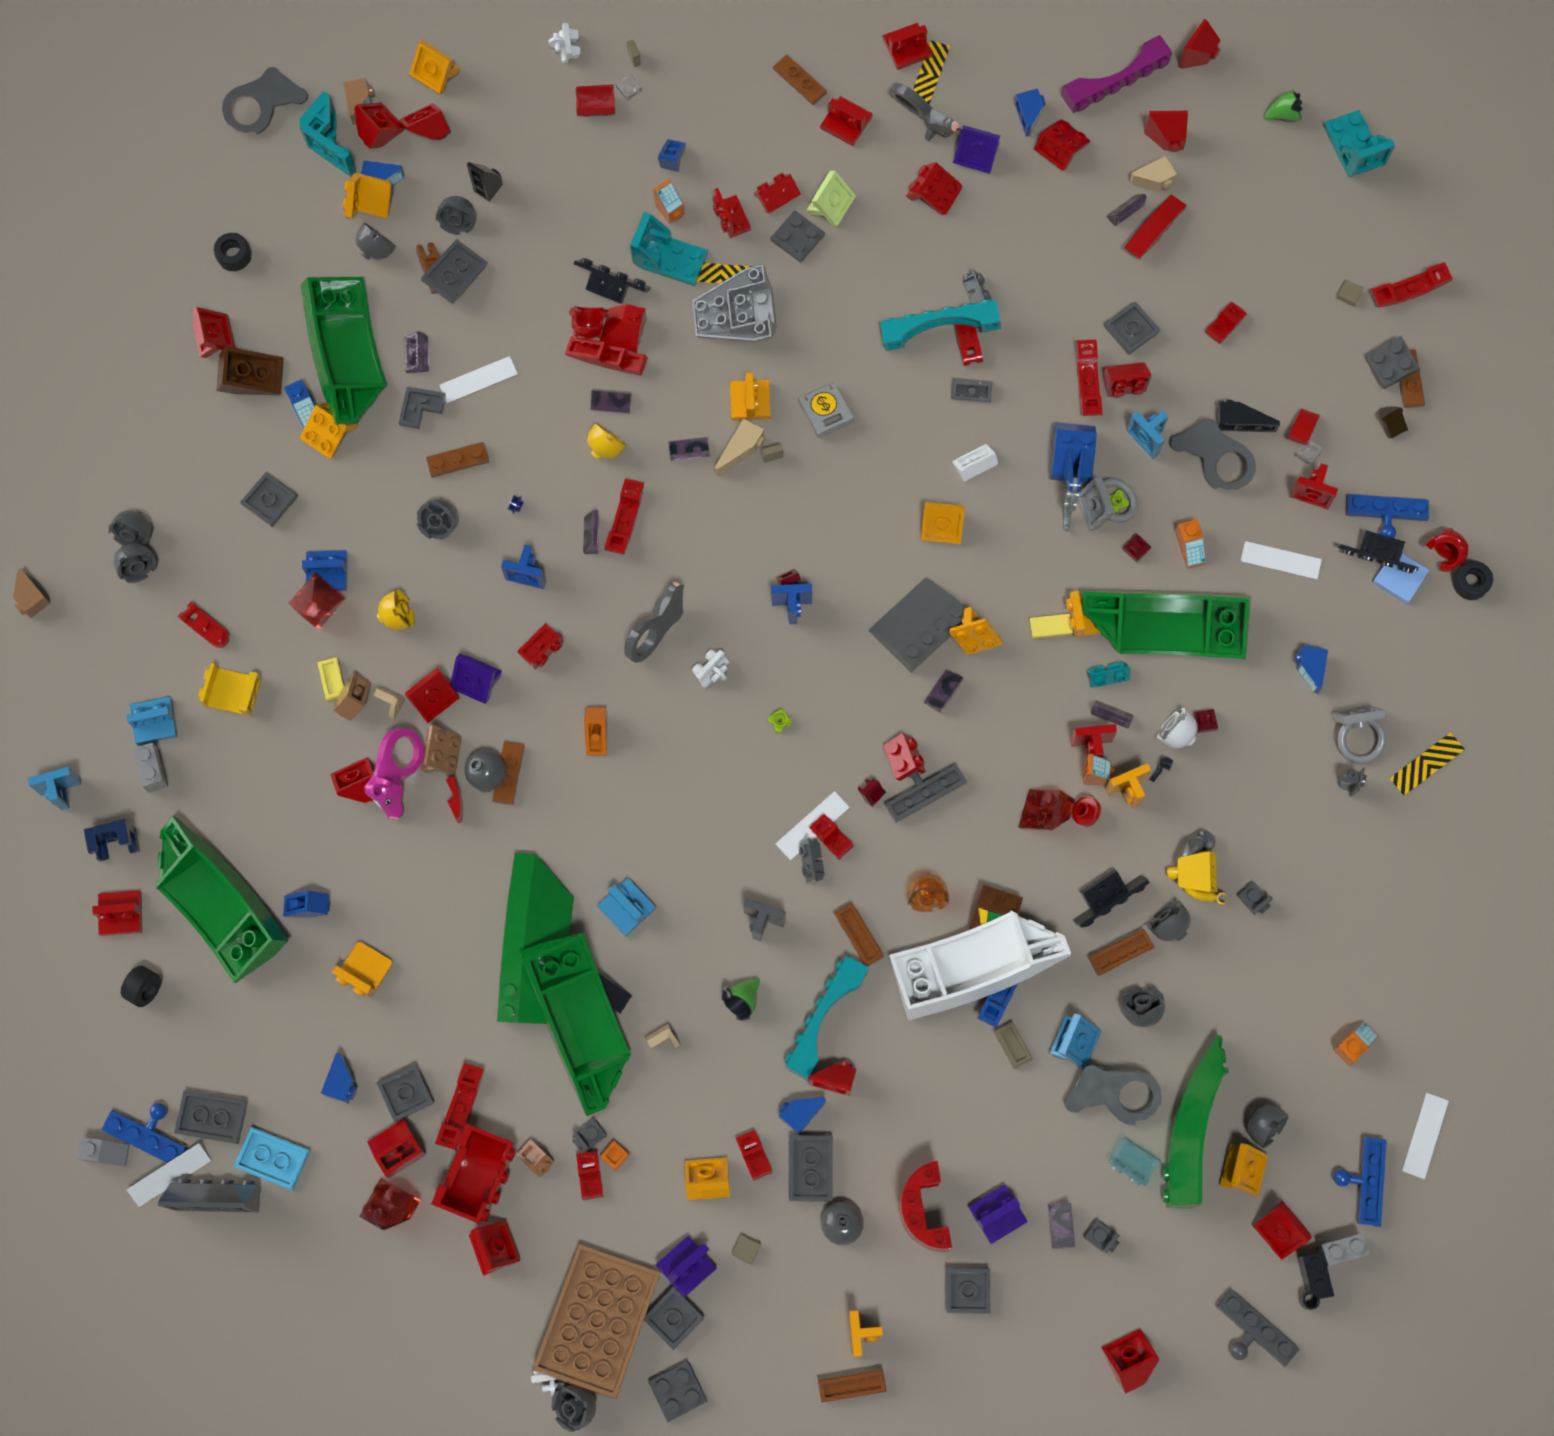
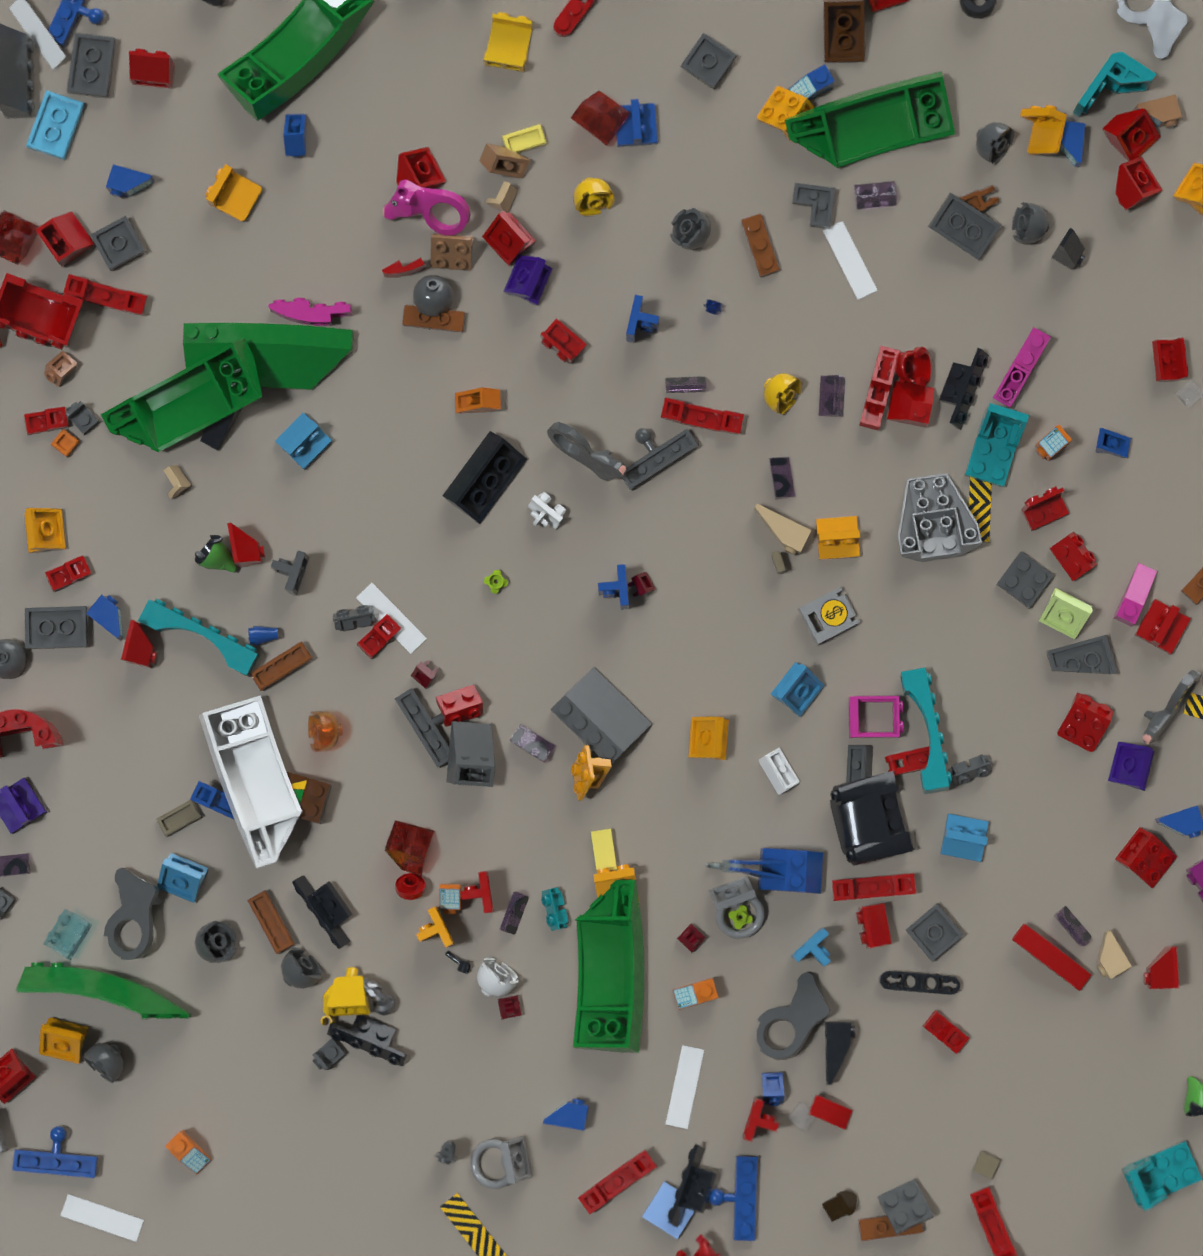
camera: 90 degrees right, 10 degrees up
(221, 1050) = (151, 68): none -> red slope
(492, 903) = (301, 312): none -> dark pink slope
(594, 229) = (1021, 367): none -> dark pink slope
(662, 558) = (658, 457): none -> dark grey plate
(673, 726) = (484, 477): none -> black slope
(735, 966) = (244, 548): none -> red slope
(817, 141) = (1135, 595): none -> slope
(826, 955) = (260, 635): none -> blue cone
(873, 187) = (1083, 657): none -> dark grey wing
(895, 440) = (797, 688): none -> dark azure bracket
(926, 390) = (897, 707): none -> dark pink window
(956, 745) = (471, 755): none -> dark grey slope
(1025, 379) = (869, 819): none -> black piece
(1042, 298) = (964, 837): none -> dark azure bracket
(1182, 344) = (919, 982): none -> black beam
(1237, 857) = (370, 1037): none -> black bracket
(1282, 476) = (773, 1088): none -> blue bracket
(1374, 624) = (617, 1181): none -> red slope

